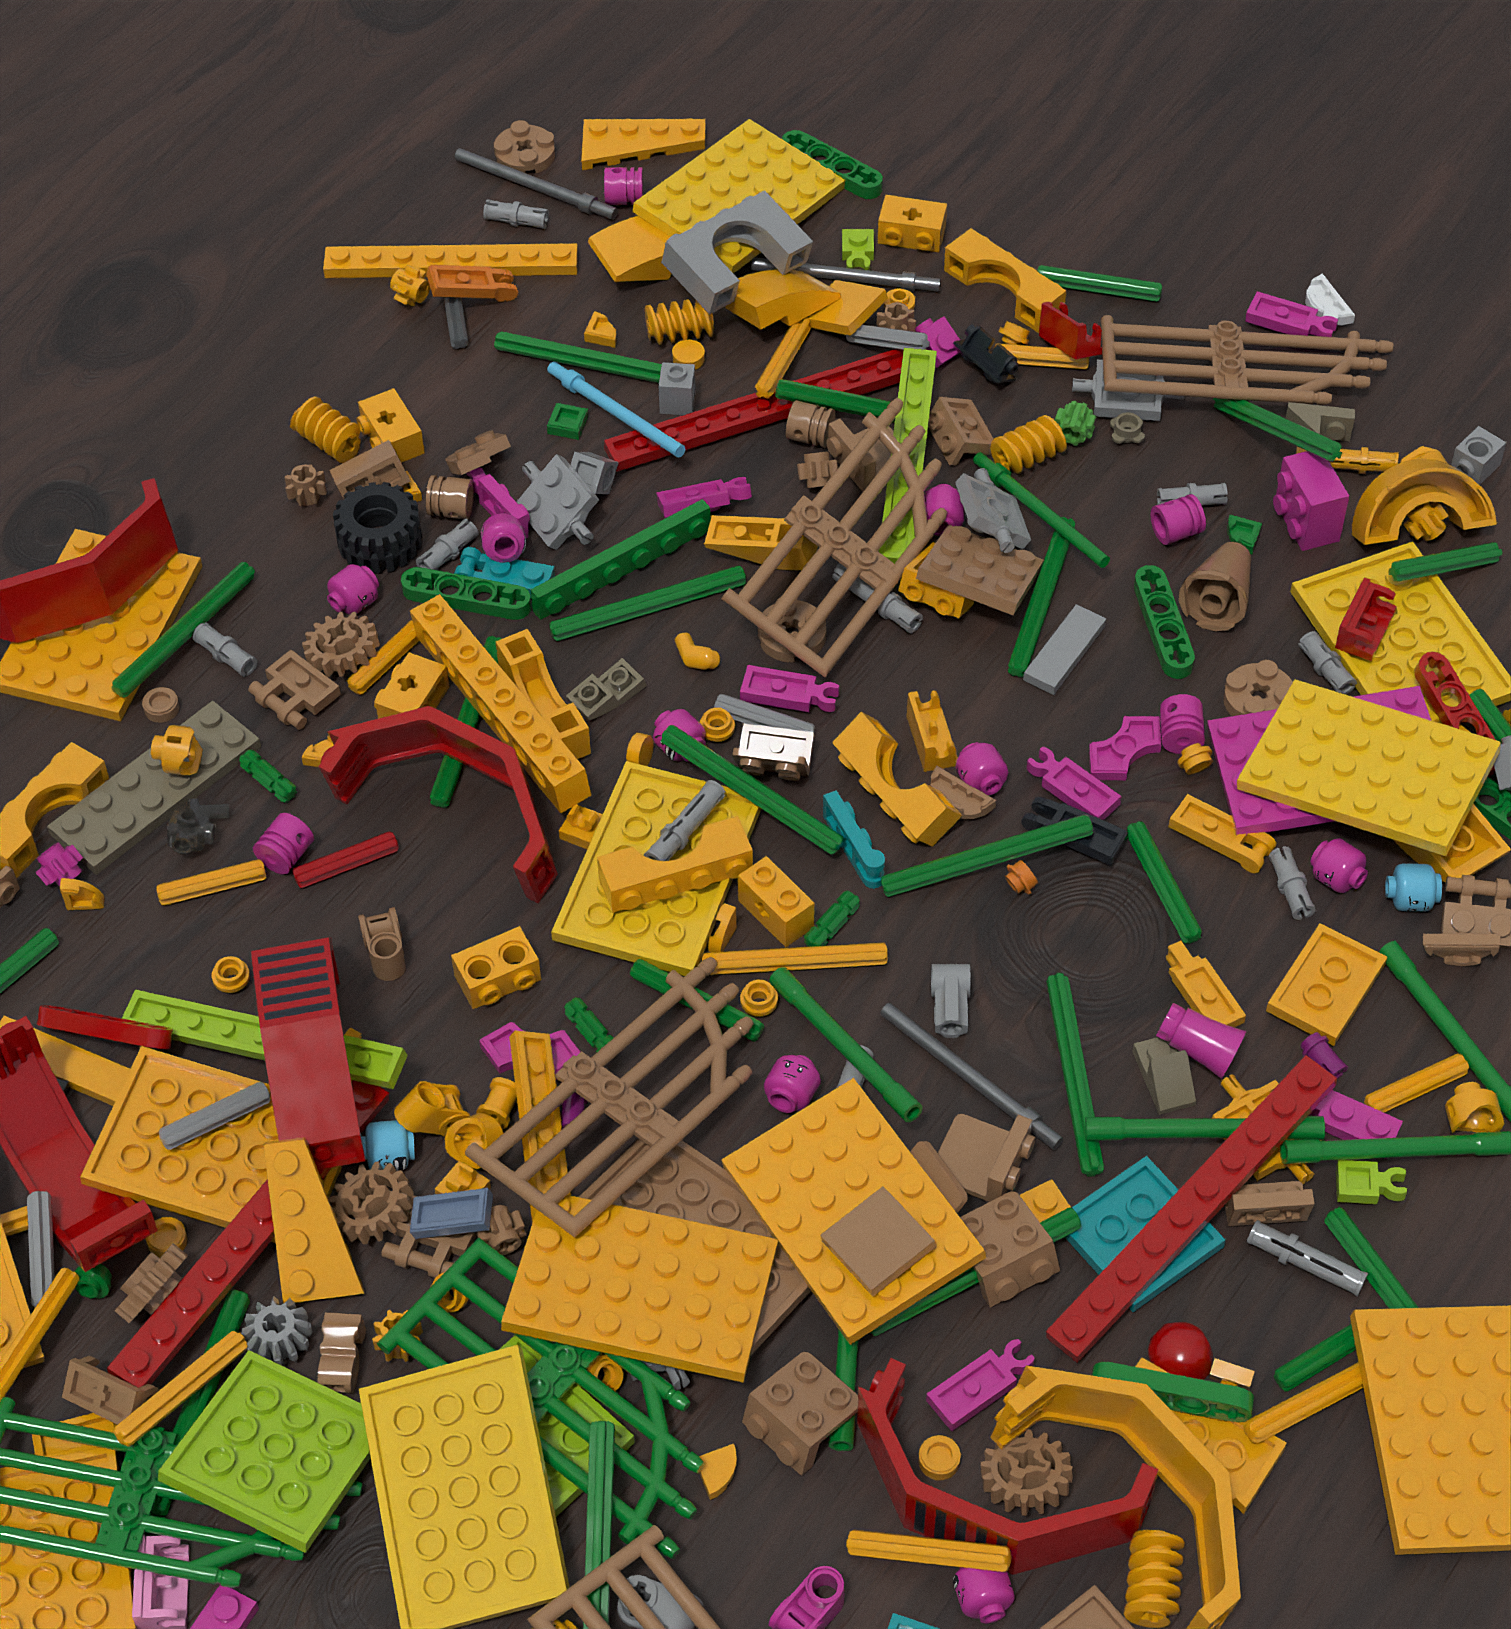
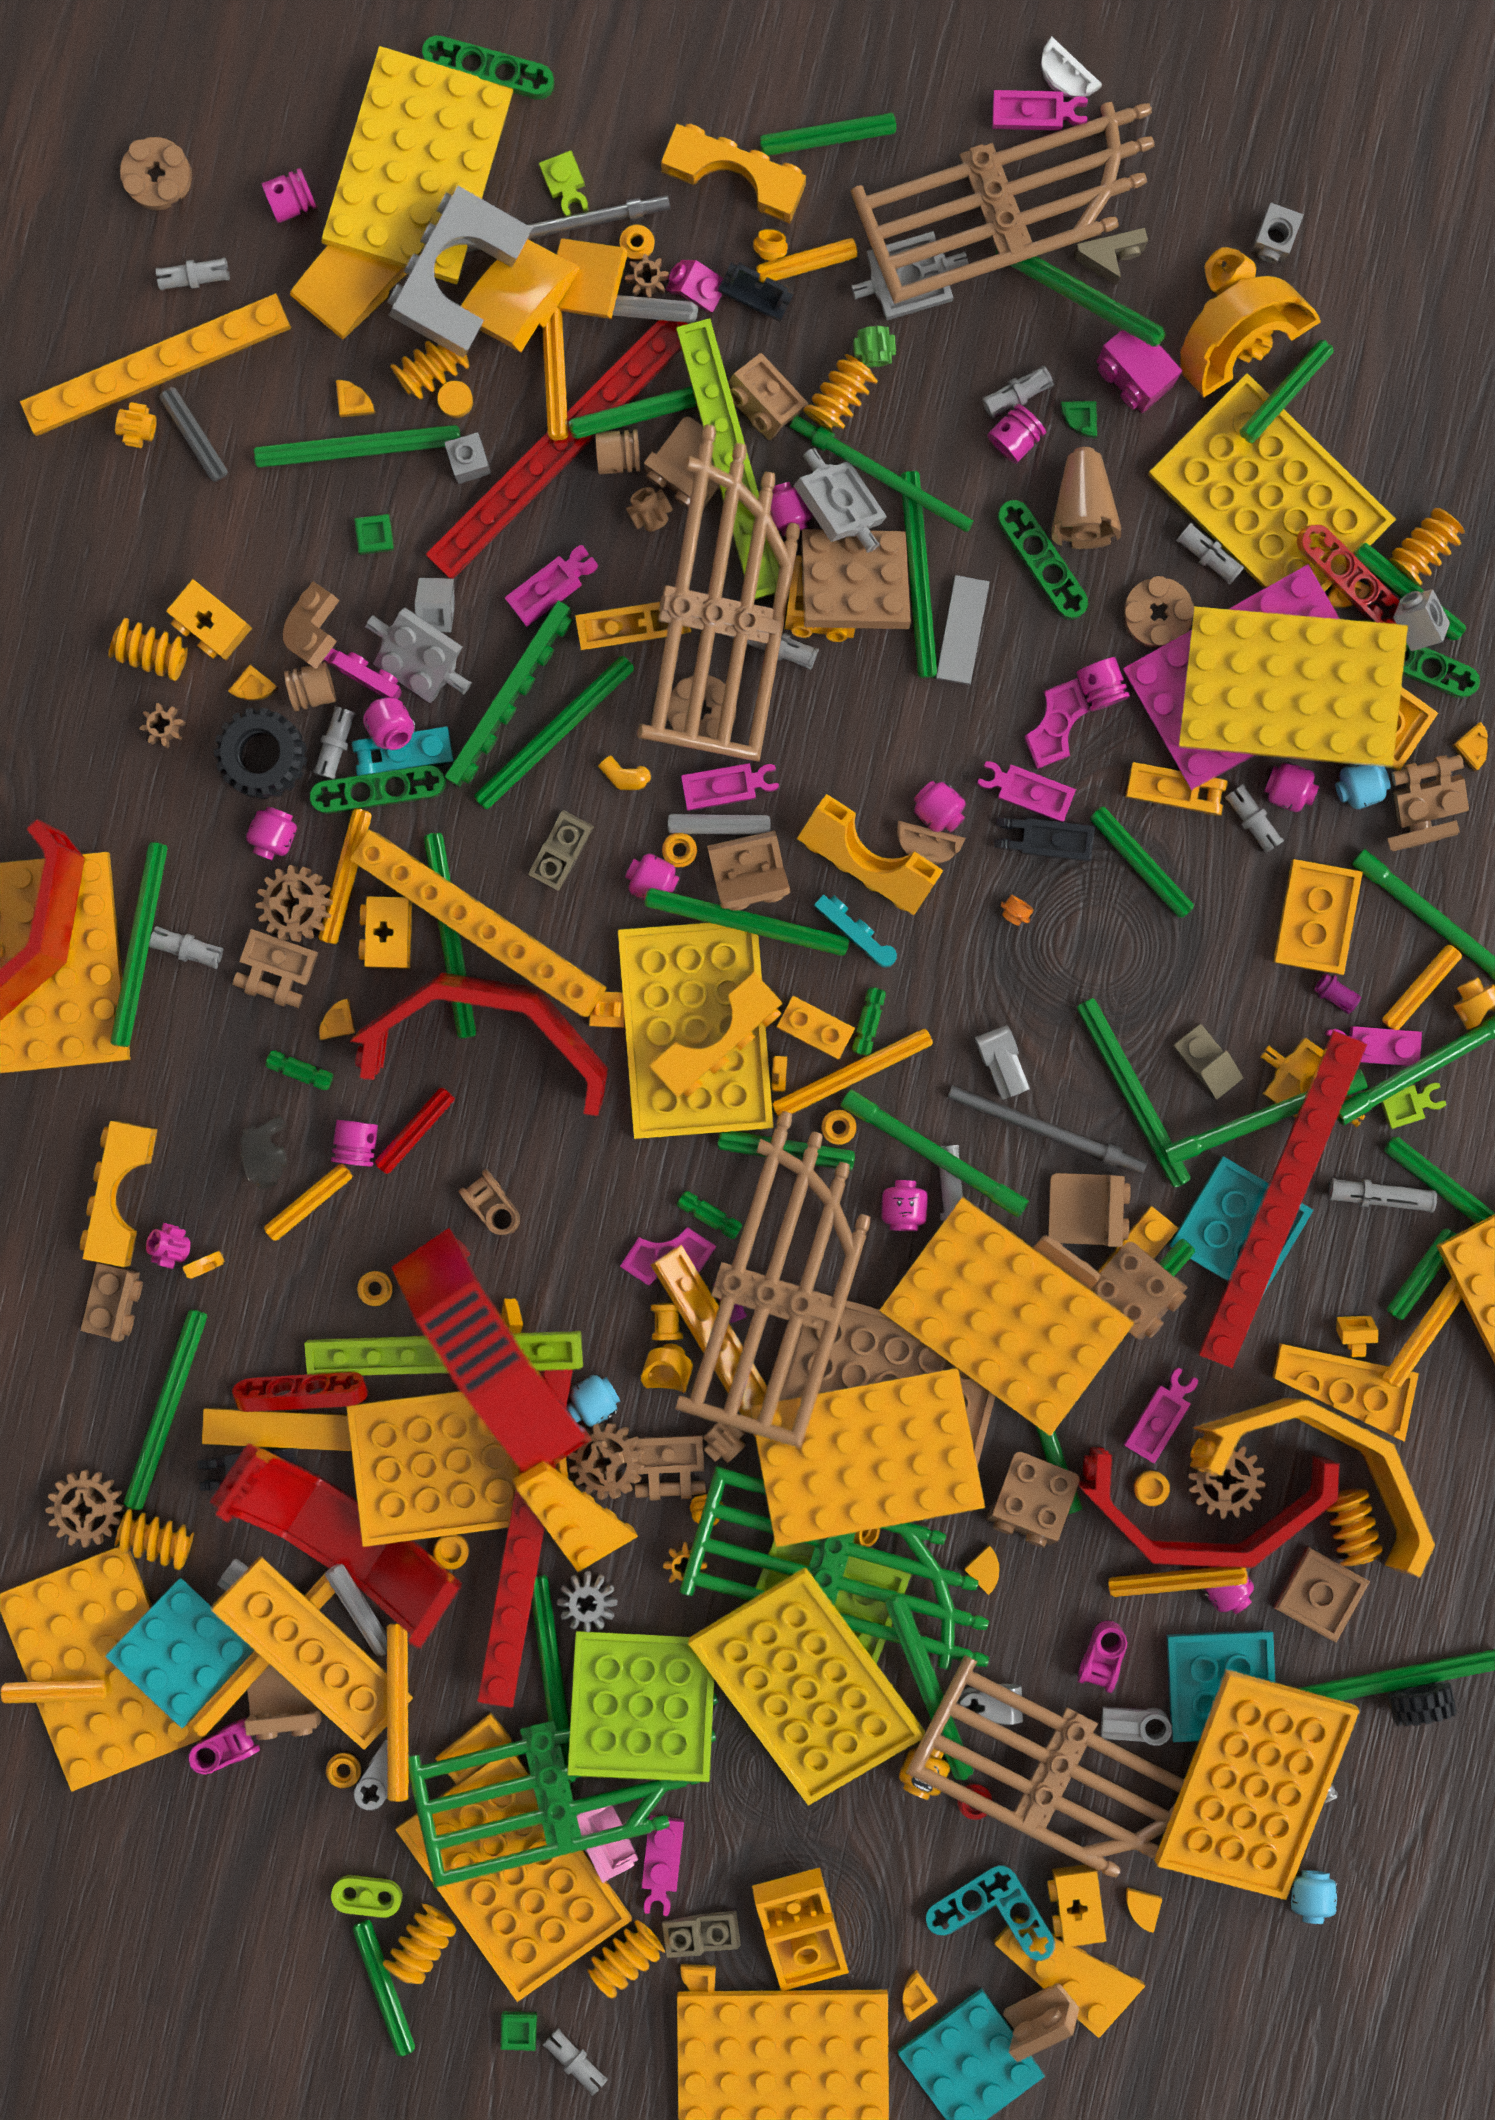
camera: 25 degrees left, 35 degrees up
(101, 1391) = (471, 1716): medium nougat hinge -> none
(145, 796) = (202, 1121): dark tan plate -> none
(151, 1283) = (471, 1612): medium nougat gear -> none
(160, 704) = (159, 1030): medium nougat tile -> none
(174, 748) = (214, 1096): light orange piece -> none
(180, 1389) = (542, 1689): light orange axle -> none
(214, 1115) = (442, 1447): light grey axle -> none
(340, 1355) = (646, 1600): medium nougat leg -> none
(374, 465) = (220, 692): medium nougat hinge -> none
(430, 1108) = (616, 1358): light orange piece -> none
(451, 1213) = (682, 1452): sand blue tile -> none
(462, 1178) = (665, 1409): light orange tile -> none
(471, 282) = (195, 401): orange hinge -> none
(492, 961) = (596, 1187): light orange brick -> none
(526, 667) = (511, 892): light orange arch -> none
(576, 383) = (359, 484): medium azure bar -> none
(585, 202) = (258, 228): flat silver bar -> none
(624, 138) = (258, 114): light orange wing -> none
(640, 749) = (623, 911): light orange tile -> none
(676, 834) = (697, 1028): light grey pin -> none
(878, 1241) = (1045, 1351): medium nougat tile -> none
(912, 223) = (626, 122): light orange brick -> none
(930, 732) = (878, 781): light orange hinge -> none
(986, 855) = (980, 903): green axle -> none
(1068, 334) = (827, 231): red hinge -> none
(1127, 428) = (927, 317): dark tan plate -> none
(1181, 1350) = (1308, 1322): red hair -> none
(1186, 1393) = (1319, 1374): green beam -> none
(1195, 758) = (1126, 716): light orange plate -> none
(1201, 1037) = (1234, 1026): dark pink plant -> none
(1202, 986) = (1215, 967): light orange hinge -> none
(1269, 1203) = (1342, 1159): medium nougat bracket -> none
(1363, 460) = (1156, 283): light orange pin -> none
(1366, 620) = (1235, 500): red hinge -> none

